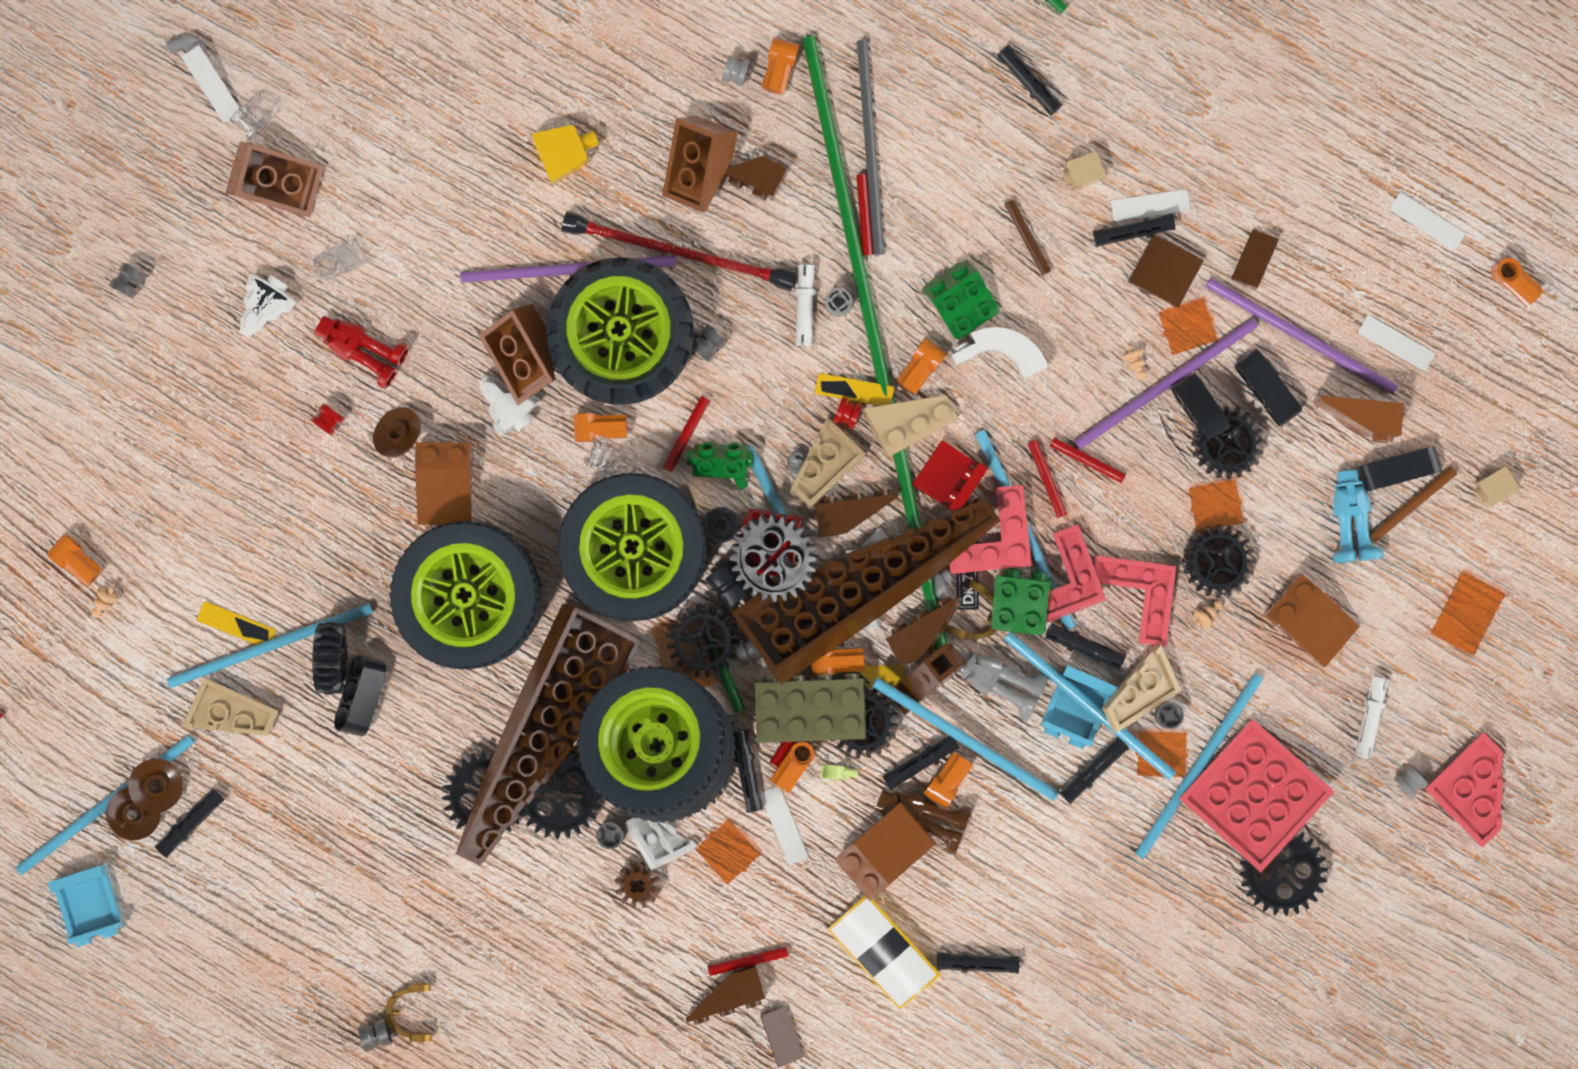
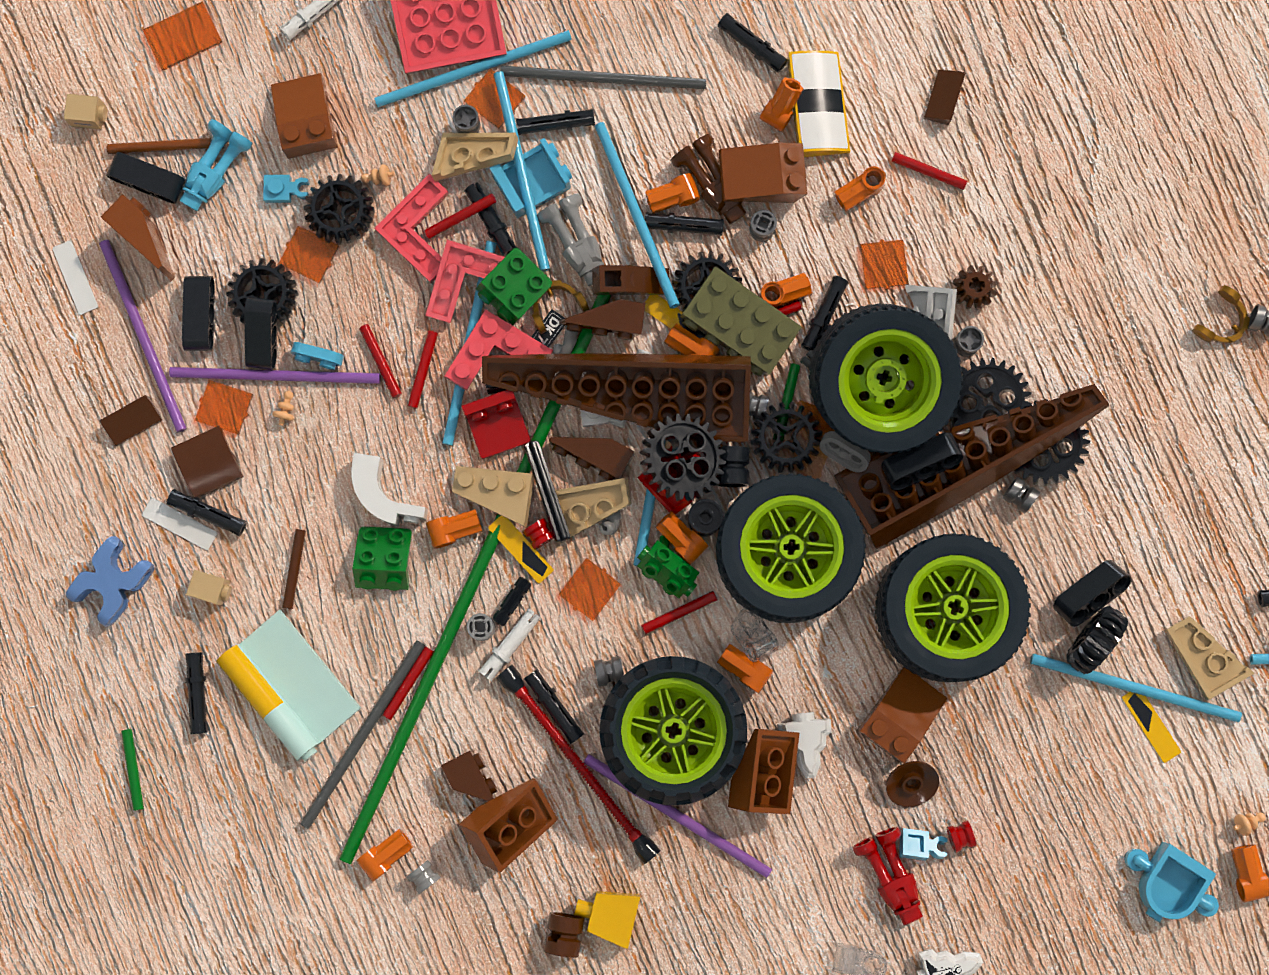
camera: 145 degrees left, 5 degrees down
(131, 506) = (1172, 883): none -> medium azure piece
(357, 387) = (918, 846): none -> plate
(479, 733) = (1015, 492): none -> flat silver wheel
(572, 700) = (922, 462): none -> black beam
(590, 110) = (564, 934): none -> reddish brown wheel
(645, 659) = (844, 452): none -> light grey plate
(722, 494) = (686, 541): none -> orange piece
(731, 282) = (547, 696): none -> black pin
(735, 990) = (962, 154): reddish brown slope -> none
(773, 399) = (589, 589): none -> clear orange piece
(784, 825) = (825, 253): white sticker -> none
(795, 897) = (858, 189): none -> orange piece
(829, 341) = (512, 601): none -> black axle
(837, 772) = (754, 263): yellowish green piece -> none
(853, 804) = (761, 230): none -> flat silver wheel
(867, 451) = (547, 491): none -> black axle
(912, 921) = (779, 108): none -> orange piece
(959, 141) = (288, 685): none -> light aqua door
(1082, 840) = (604, 77): none -> dark grey piece
(1112, 629) = (460, 216): none -> red bar
(1131, 428) = (327, 358): none -> medium azure plate
(1169, 117) = (110, 581): none -> medium blue piece
(1282, 543) = (280, 188): none -> medium azure plate

